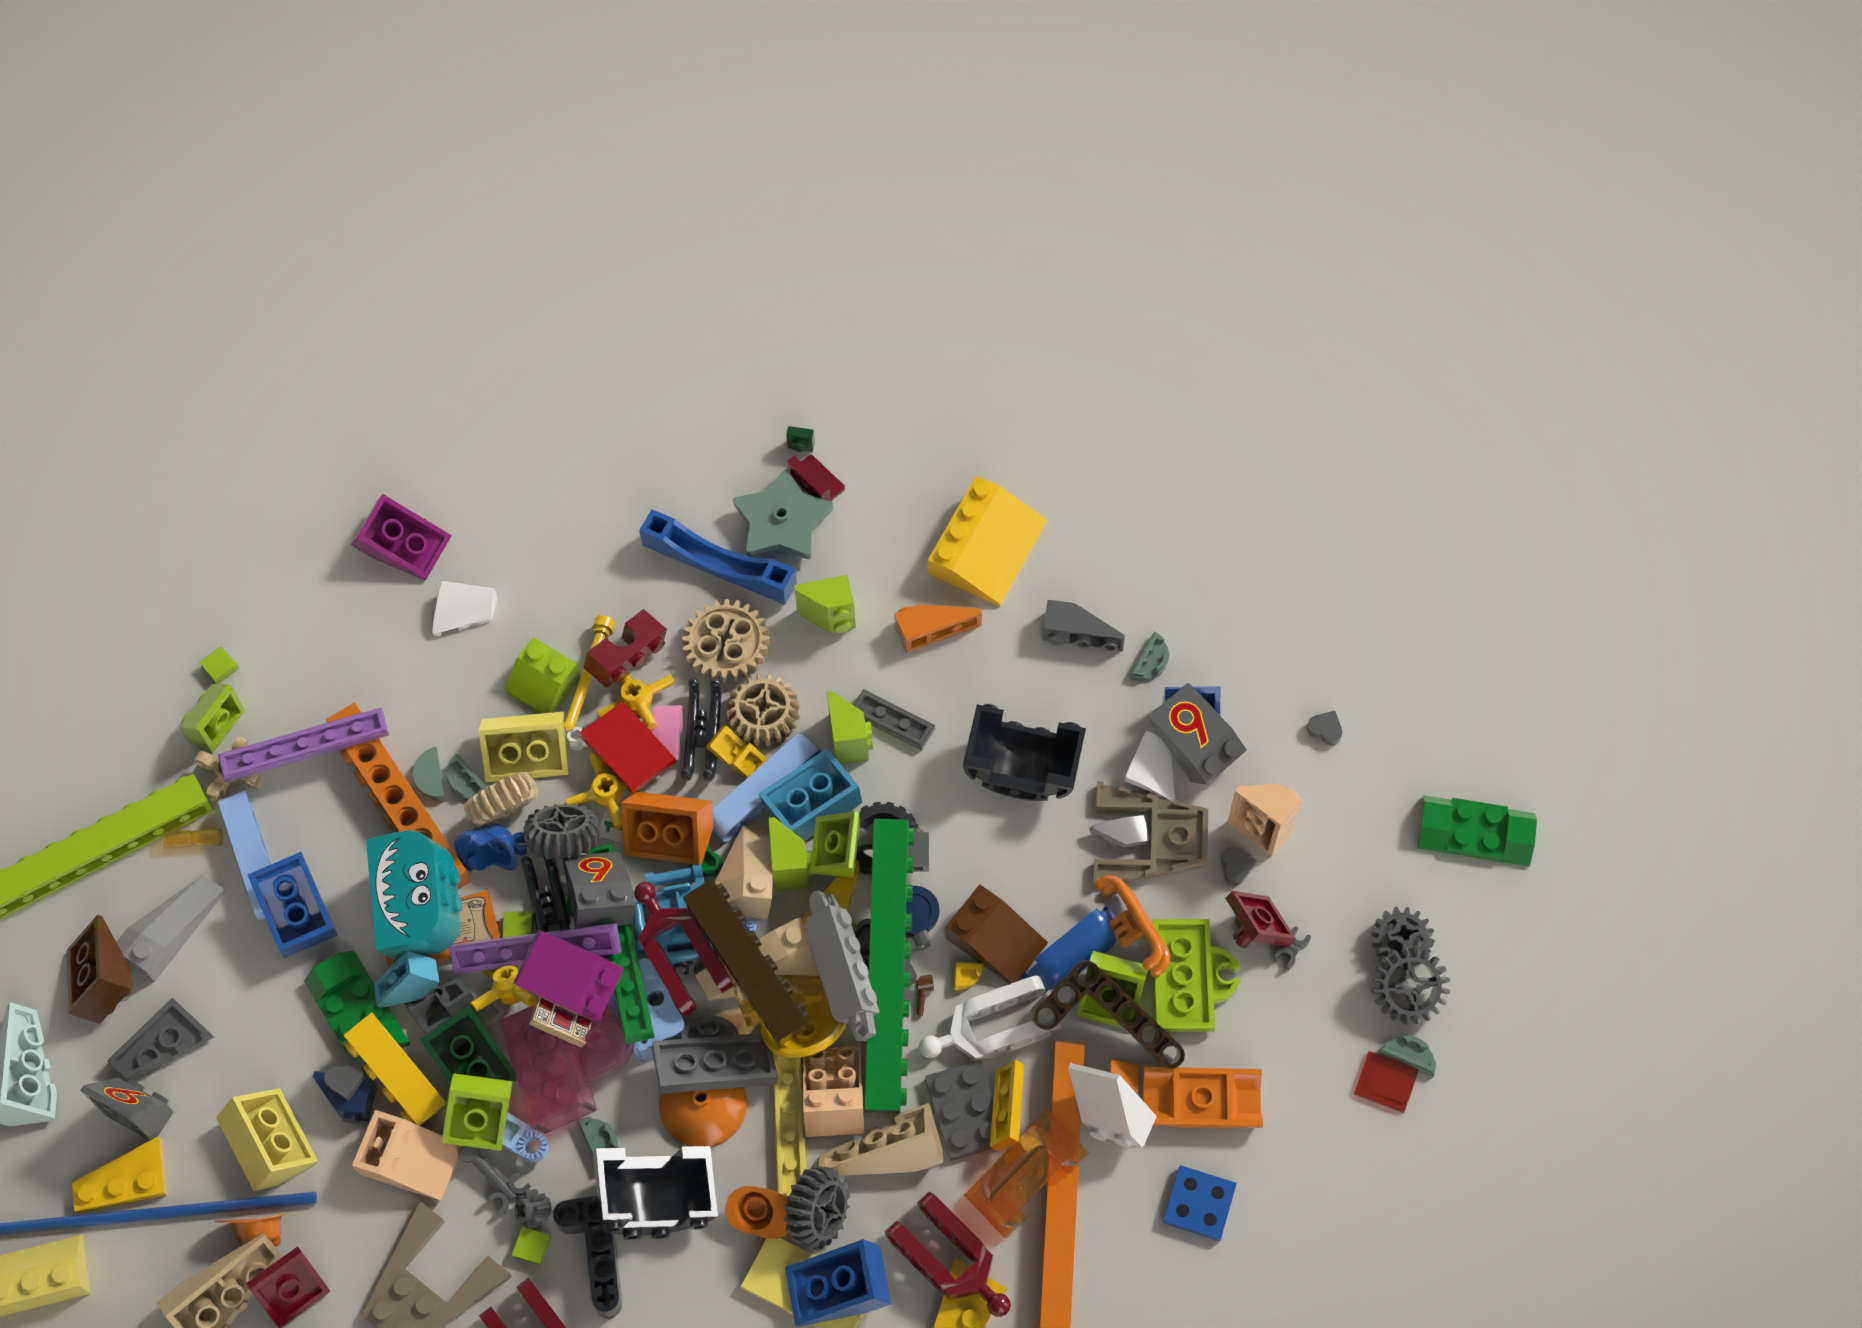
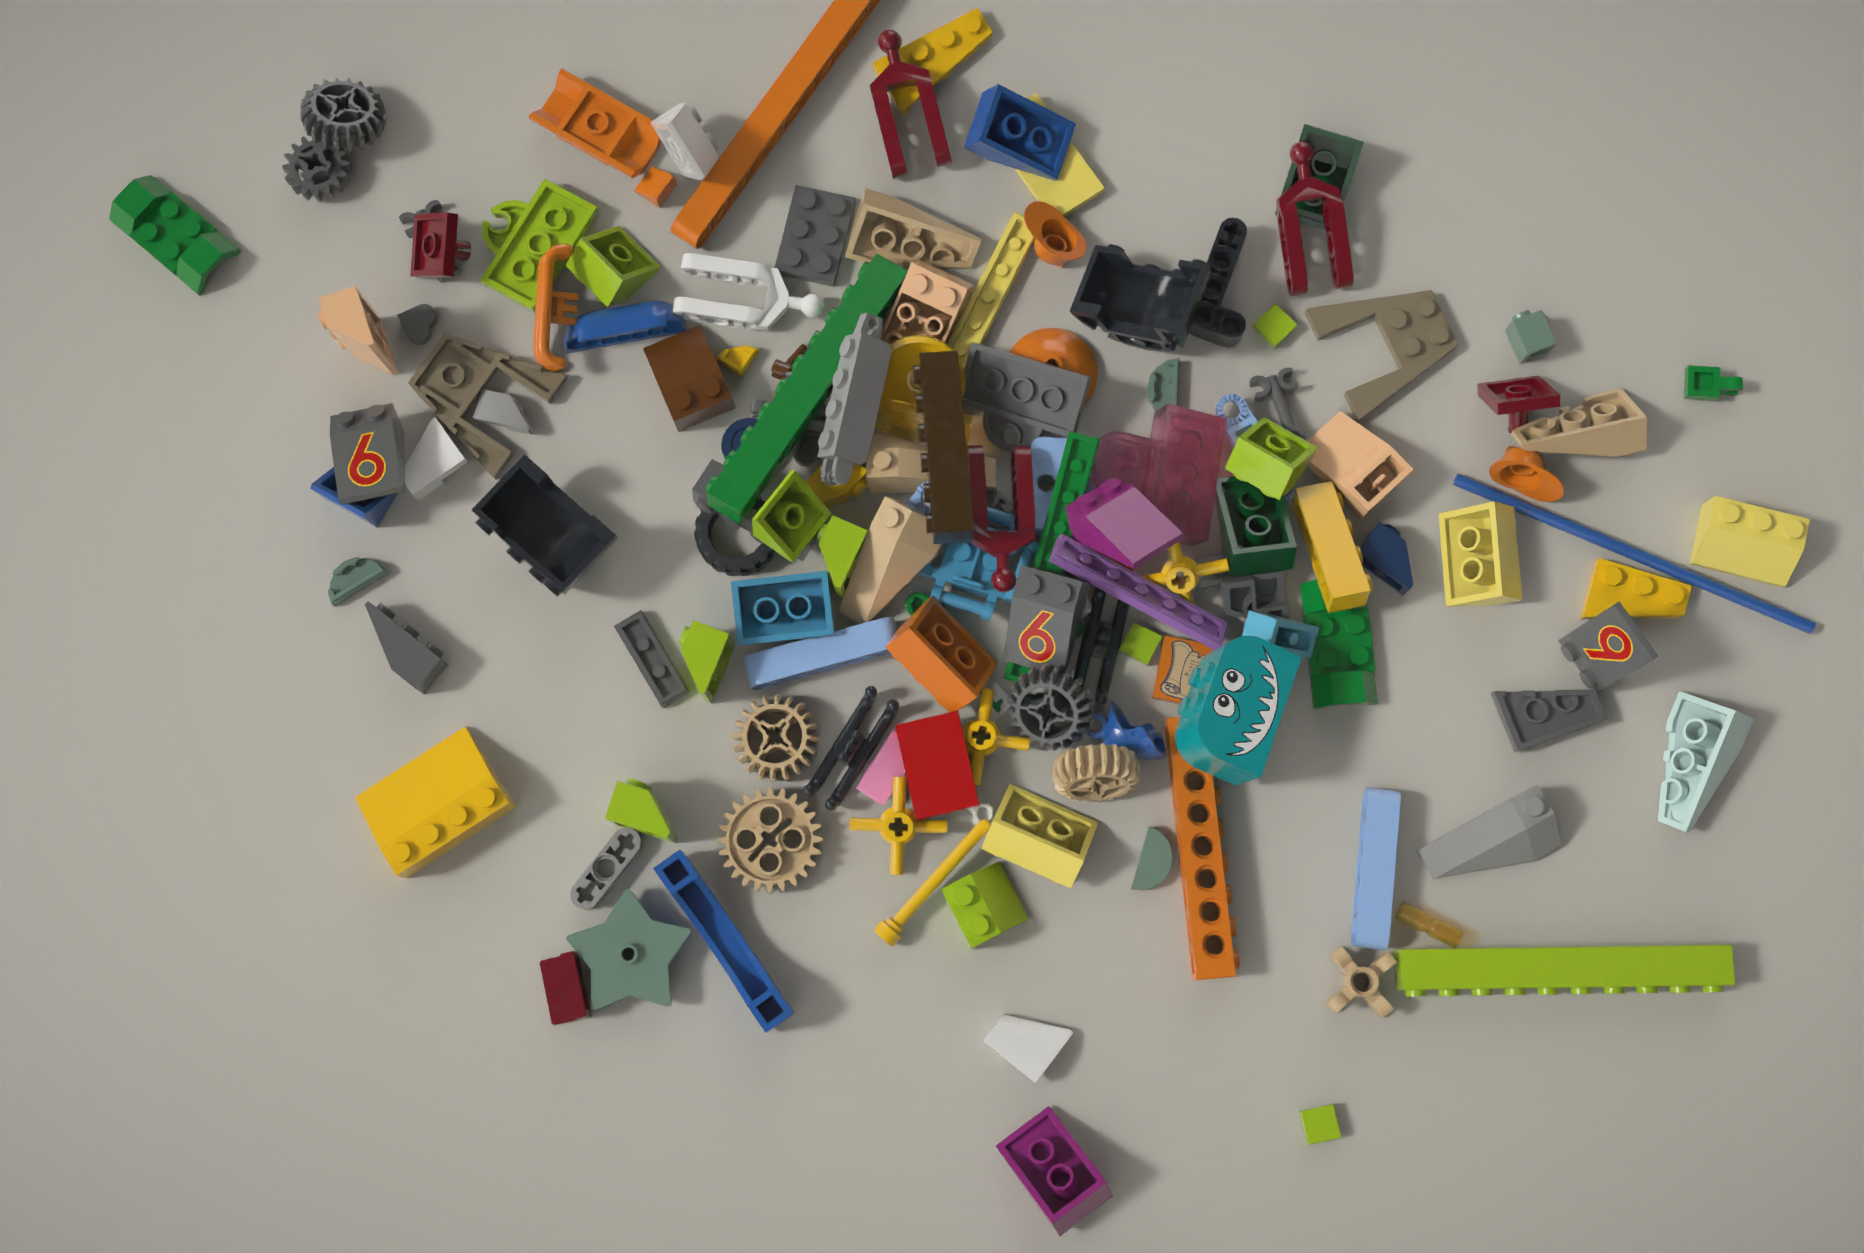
camera: 150 degrees left, 15 degrees up
(96, 973) = (1587, 815): reddish brown slope -> none
(212, 717) = (1355, 1055): lime slope -> none
(292, 905) = (1360, 773): blue slope -> none
(303, 744) = (1273, 955): medium lavender tile -> none
(344, 1080) = (1384, 559): dark grey tile -> none
(462, 779) = (1120, 835): sand green tile -> none
(532, 1208) = (1259, 352): dark grey gear -> none
(560, 1021) = (1155, 489): tile -> none
(611, 662) = (854, 889): dark red arch -> none
(736, 753) = (828, 705): yellow slope -> none
(800, 439) = (554, 1044): dark green plate -> none
(817, 1207) = (1002, 203): dark grey gear -> none
(831, 554) = (597, 893): none -> light grey beam
(932, 623) = (557, 740): orange slope -> none
(1007, 1105) = (776, 207): yellow plate -> none
(1023, 1171) = (798, 127): clear orange windscreen -> none
(1112, 1007) = (635, 261): dark brown beam -> none
(1199, 1203) = (659, 45): blue tile -> none
(1325, 727) = (237, 410): dark grey tile -> none
(1386, 1082) = (425, 59): clear red piece -> none
(1412, 1052) = (386, 71): sand green tile -> none

